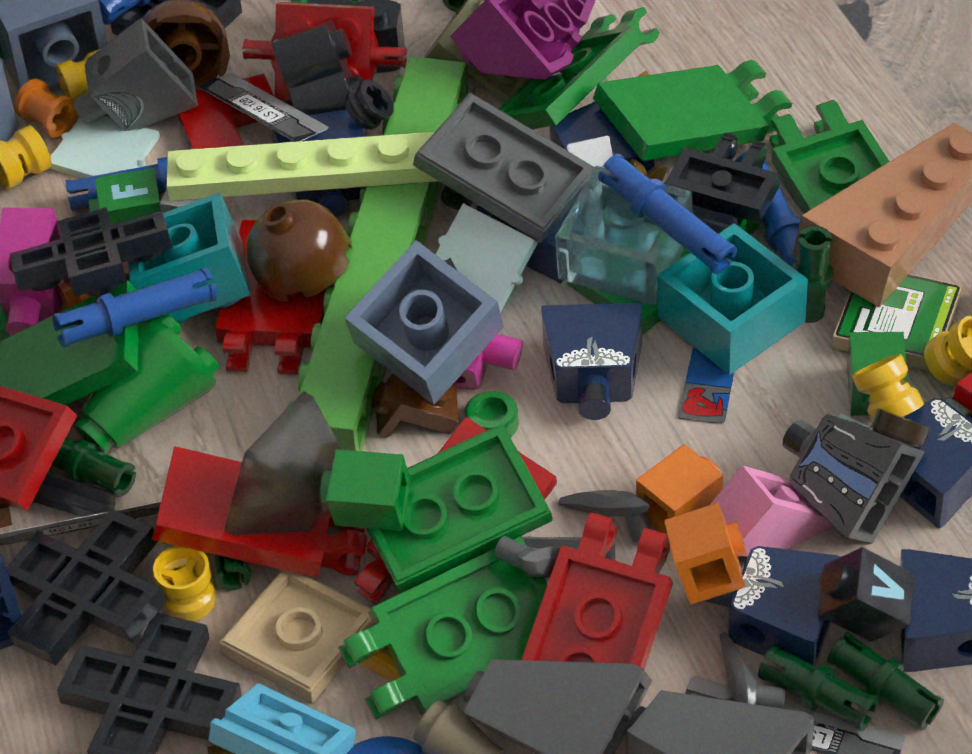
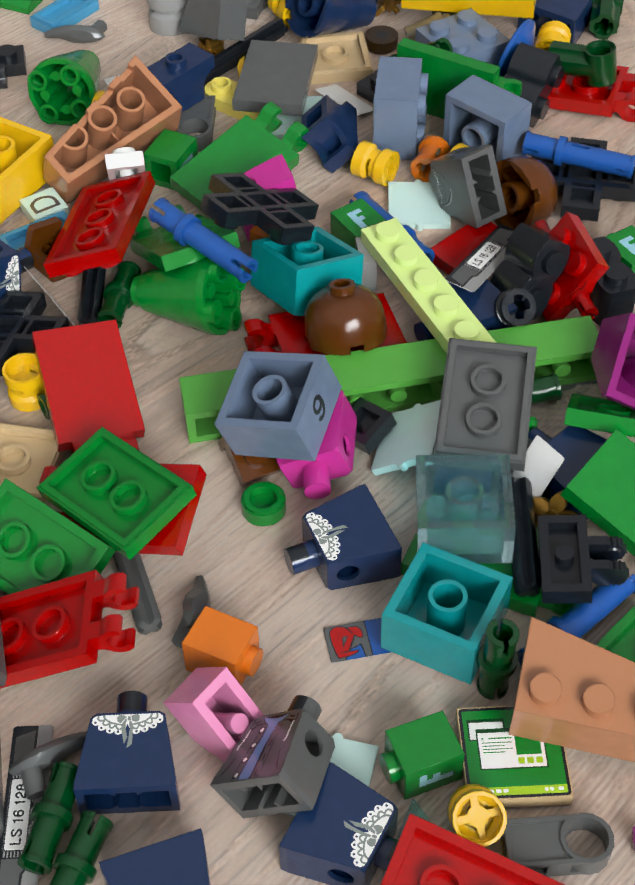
camera: 65 degrees right, 0 degrees up
(284, 474) = (97, 378): clear smoke slope -> none
(366, 489) = (89, 427): green brick -> none
(533, 561) = (79, 554): dark grey bar -> none
(650, 200) = (473, 497): blue pin -> none
(706, 552) = (131, 673): orange brick -> none
(866, 594) = (129, 811): black brick -> none
(887, 388) = (374, 757): yellow wheel -> none
(900, 428) = (321, 777): dark brown tile -> none

